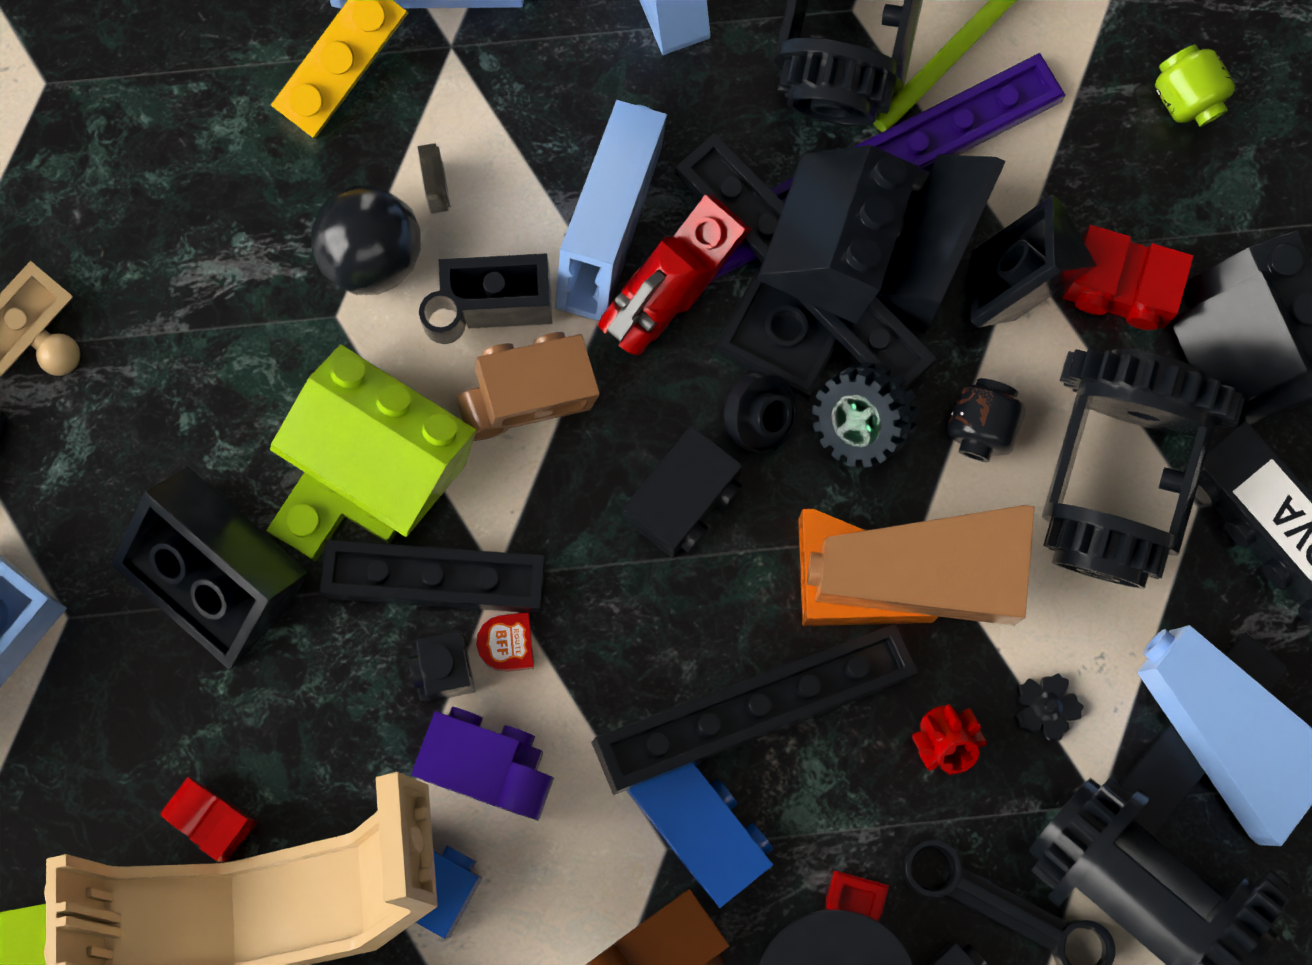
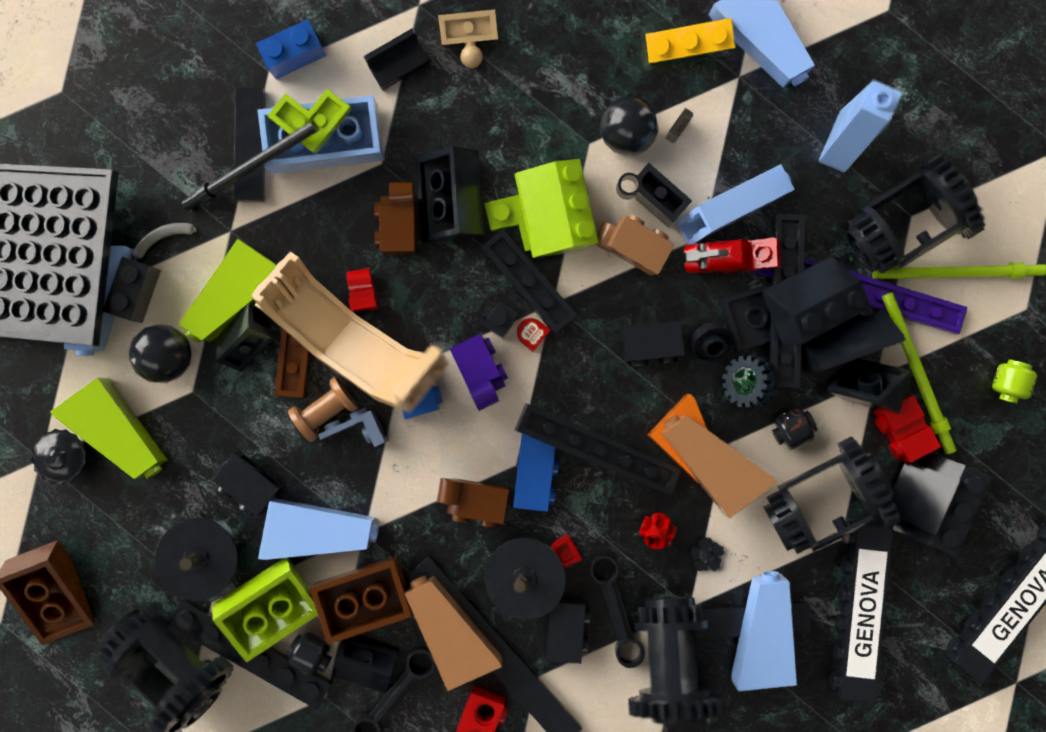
camera: 50 degrees right, 10 degrees up
(165, 672) = (397, 220): none -> reddish brown hinge
(1159, 230) = (939, 423): none -> lime bar

